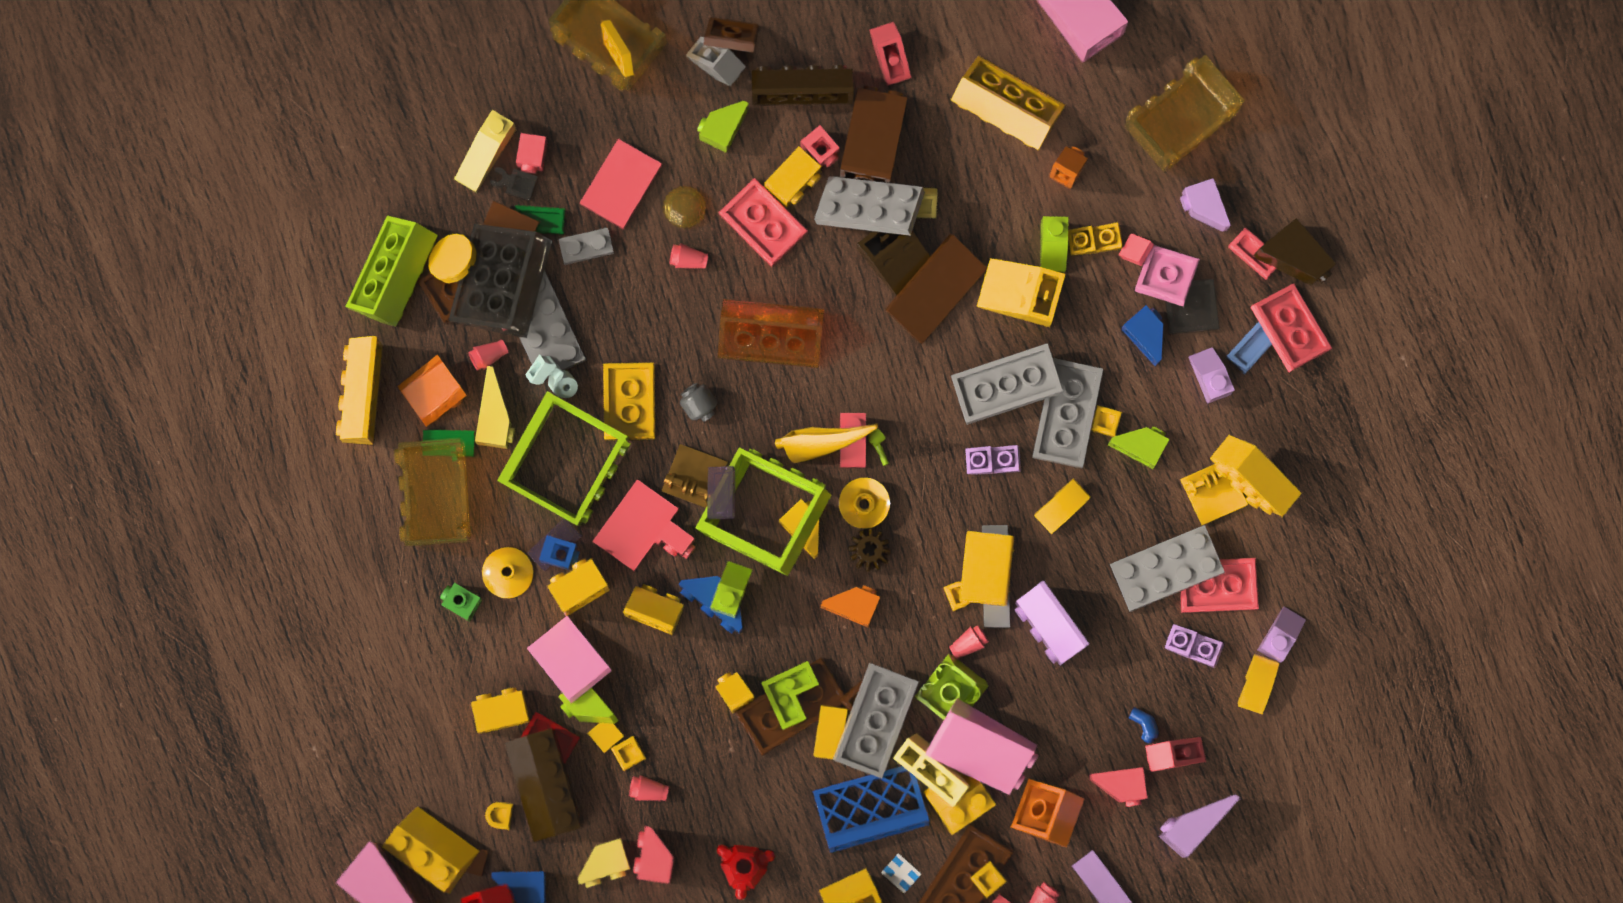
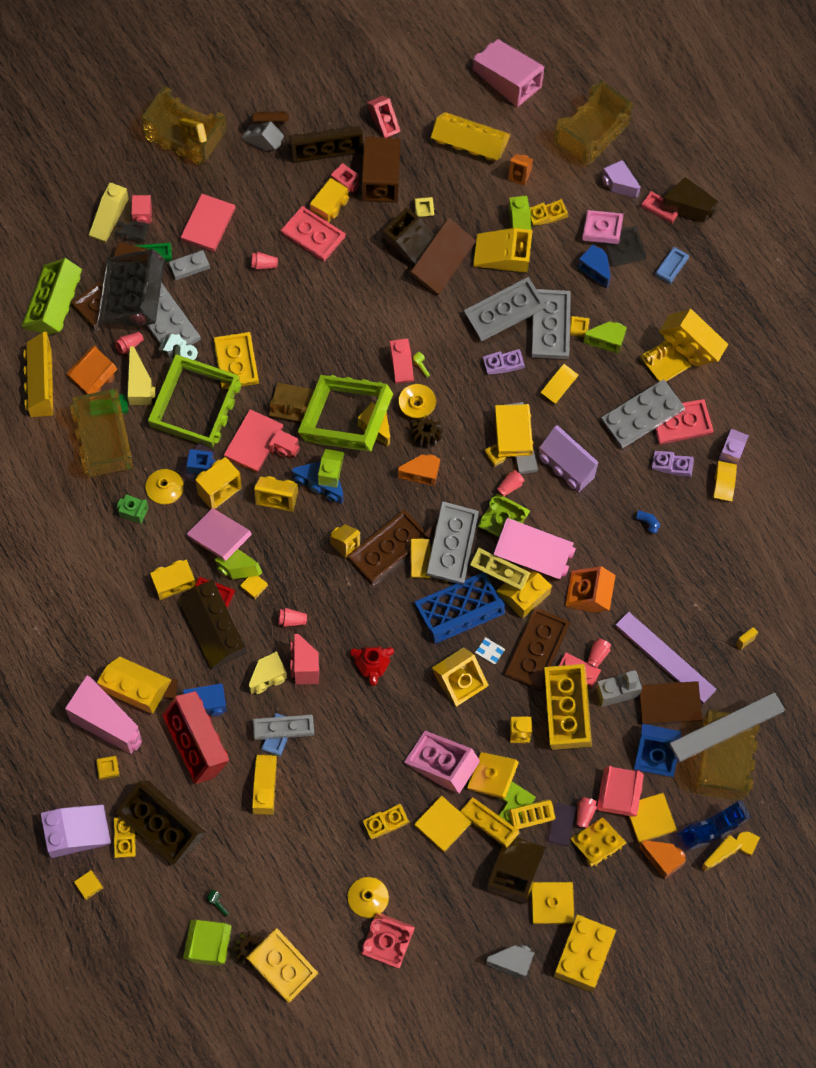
camera: 10 degrees left, 15 degrees down
(452, 258) = (94, 281): yellow tile -> none
(499, 815) = (182, 653): yellow tile -> none
(628, 753) = (273, 596): yellow tile -> none
(684, 207) = (255, 232): clear yellow hat -> none
(698, 402) = (286, 352): dark grey head -> none
(721, 492) = (312, 404): tile -> none
(722, 125) = (274, 175): lime slope -> none
(770, 333) = (330, 301): clear orange slope -> none
(783, 690) = (381, 534): lime plate -> none
(816, 441) = (373, 365): yellow piece -> none
(869, 205) = (386, 207): light grey plate -> none
(988, 879) = (556, 642): yellow tile -> none
(1123, 785) = (640, 563): coral slope -> none
(1136, 249) = (578, 214): coral tile -> none
(1175, 754) = (674, 536): coral slope -> none
(1188, 830) = (695, 583): lavender slope -> none
(1211, 375) = (648, 287): lavender slope -> none
(1291, 327) = (696, 248): coral tile -> none

